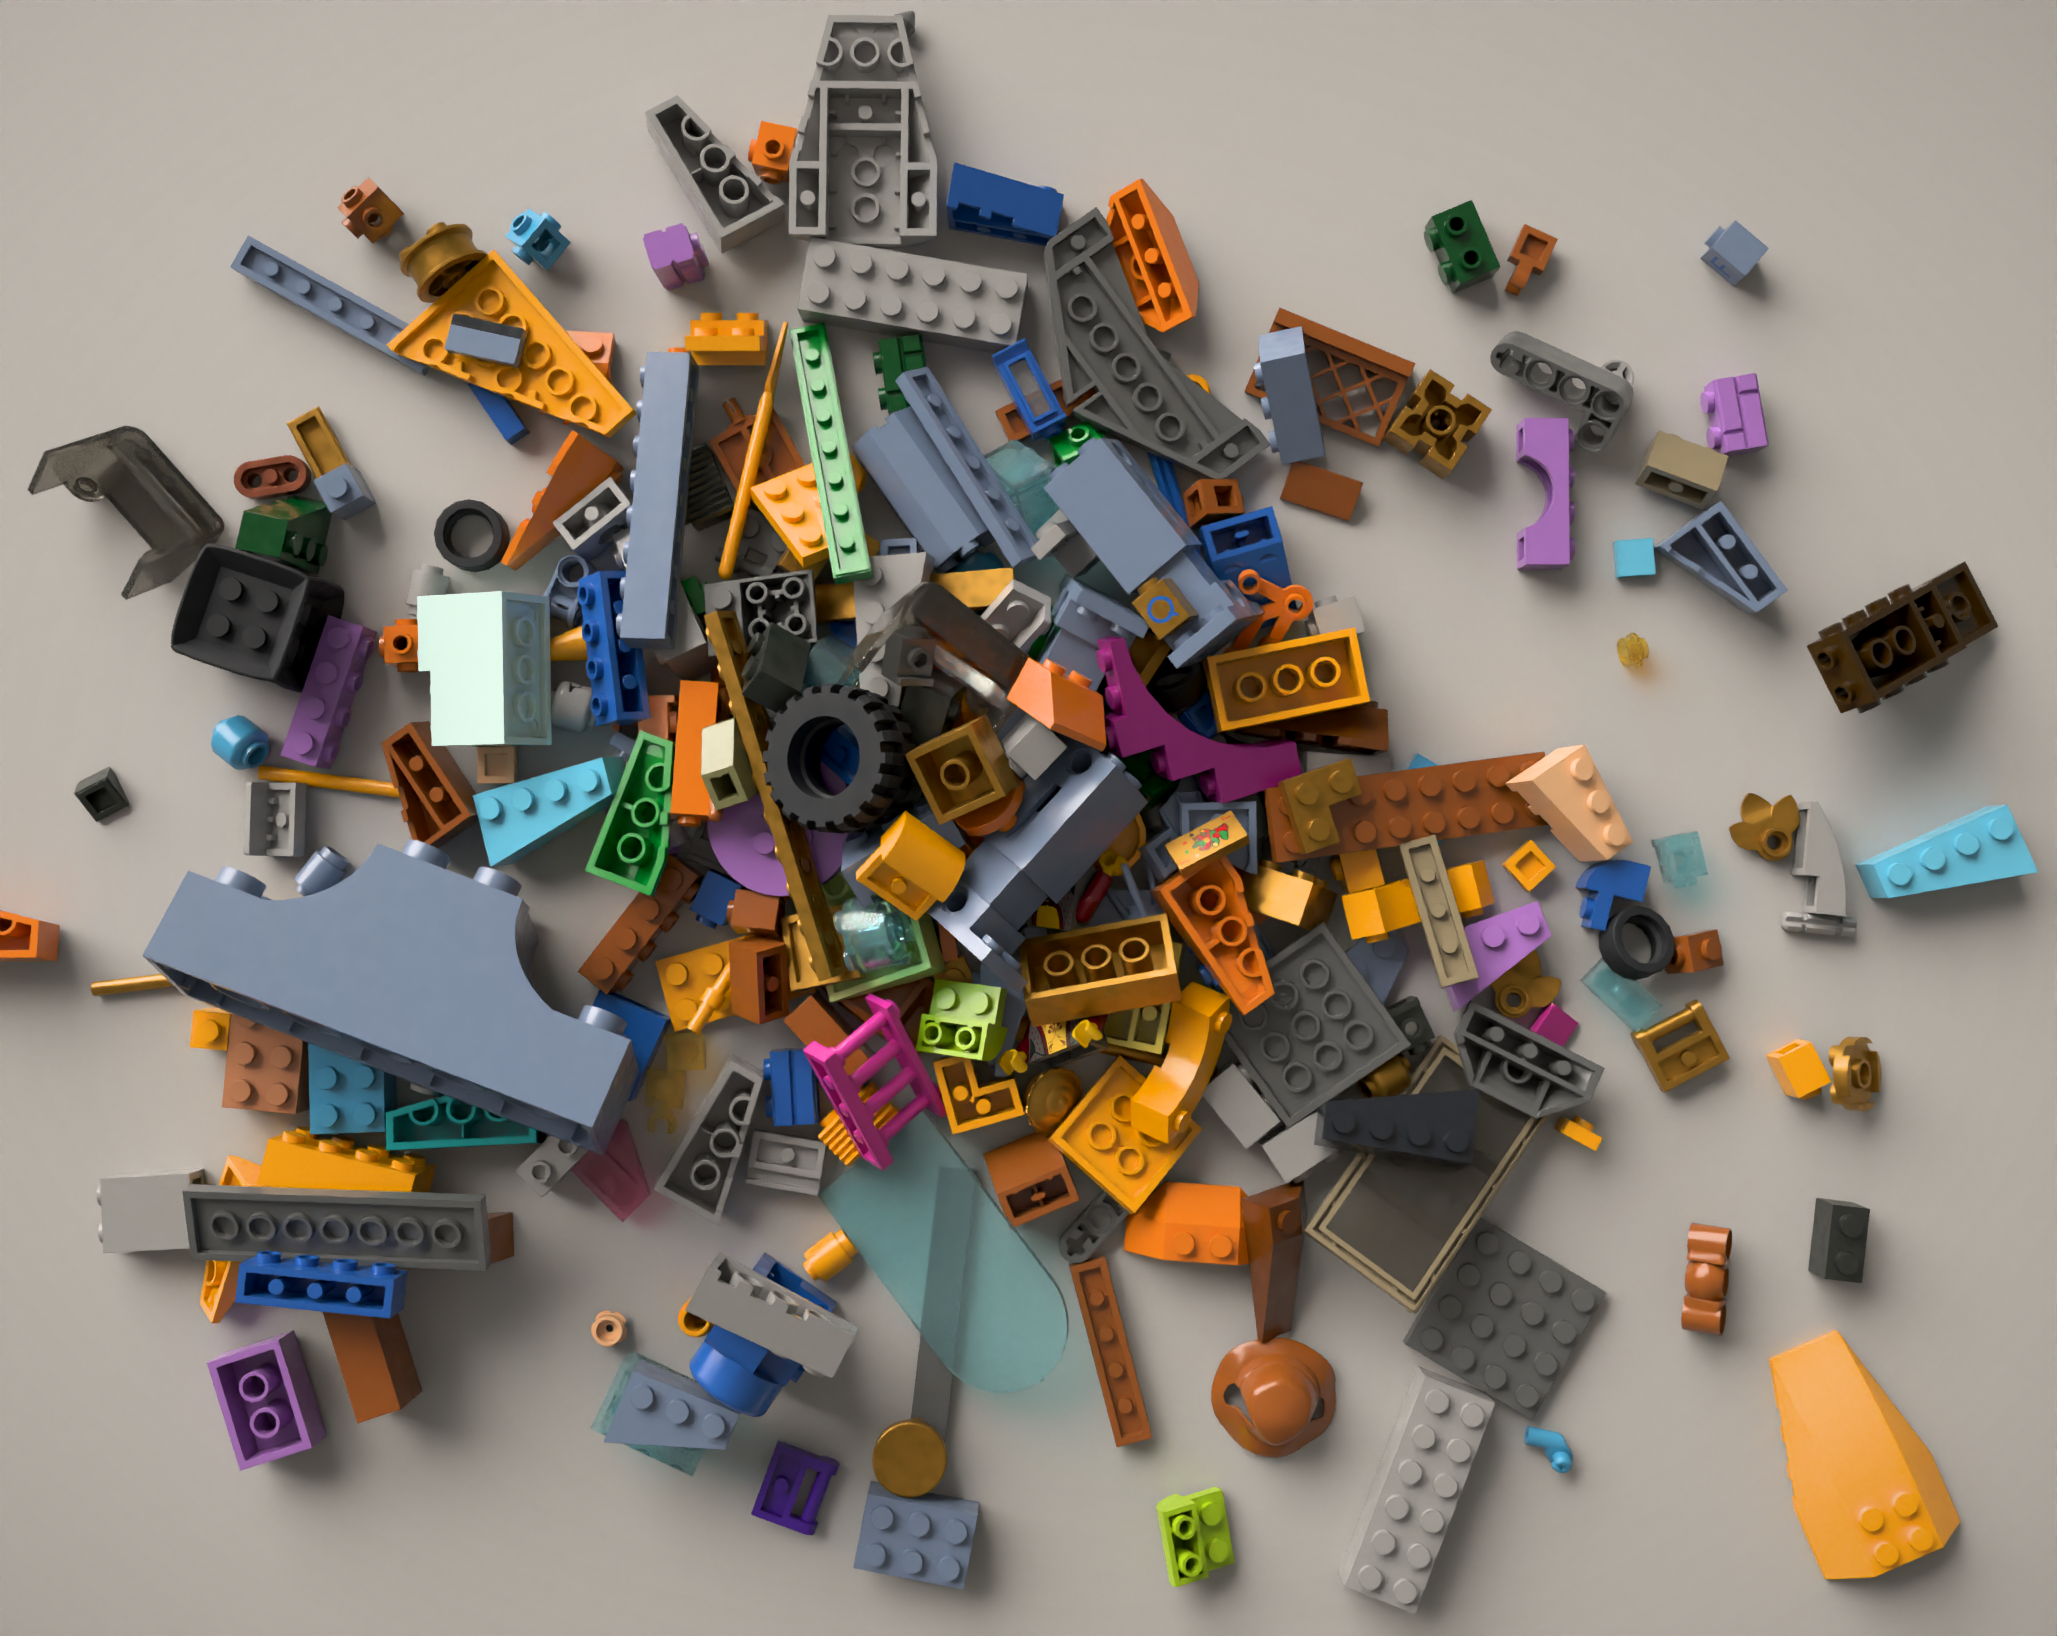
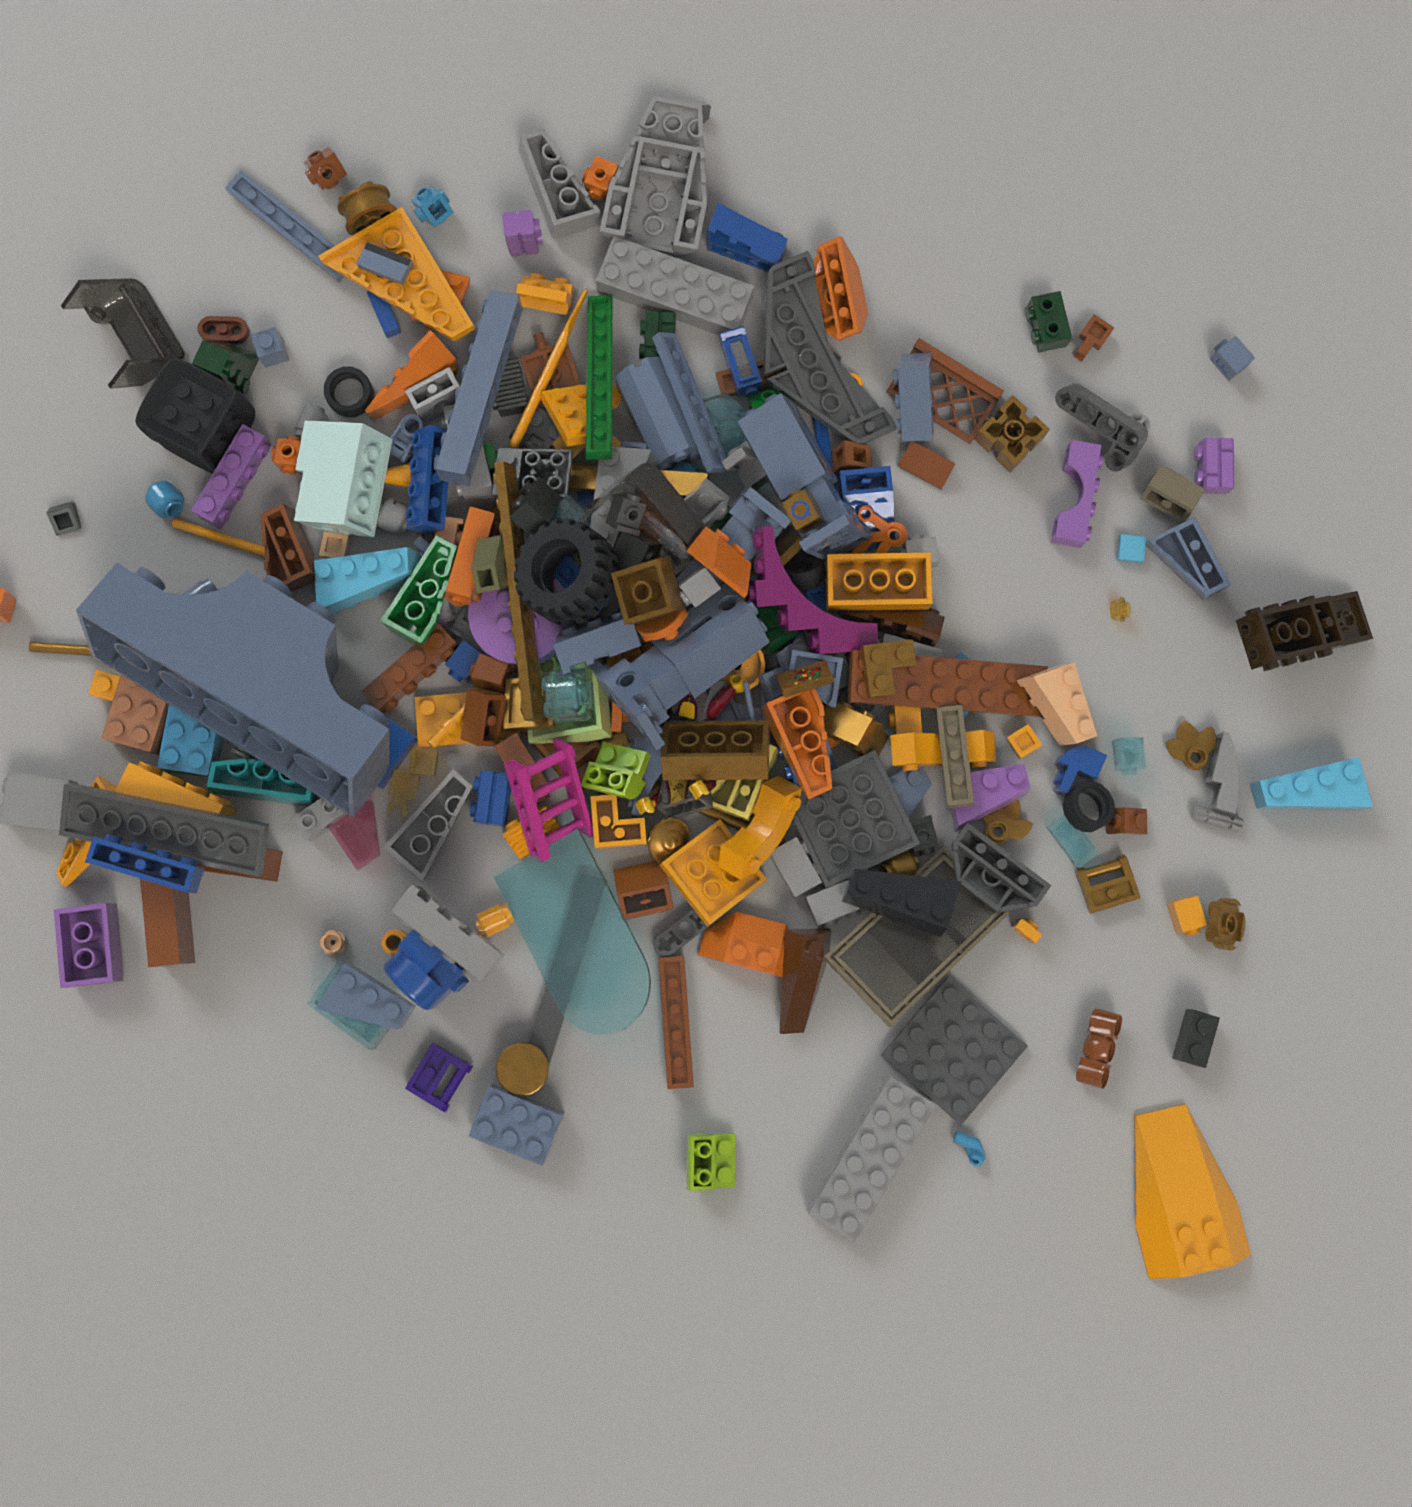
camera: 15 degrees right, 5 degrees down
(275, 819) = (177, 554): light grey bracket -> none
(317, 442) = (258, 311): pearl gold tile -> none
(786, 1162) = (477, 850): light grey plate -> none
(912, 867) = (601, 650): light orange brick -> none
(1281, 1392) = (788, 1069): dark orange piece -> none
(1554, 1024) = (1024, 853): dark pink slope -> none

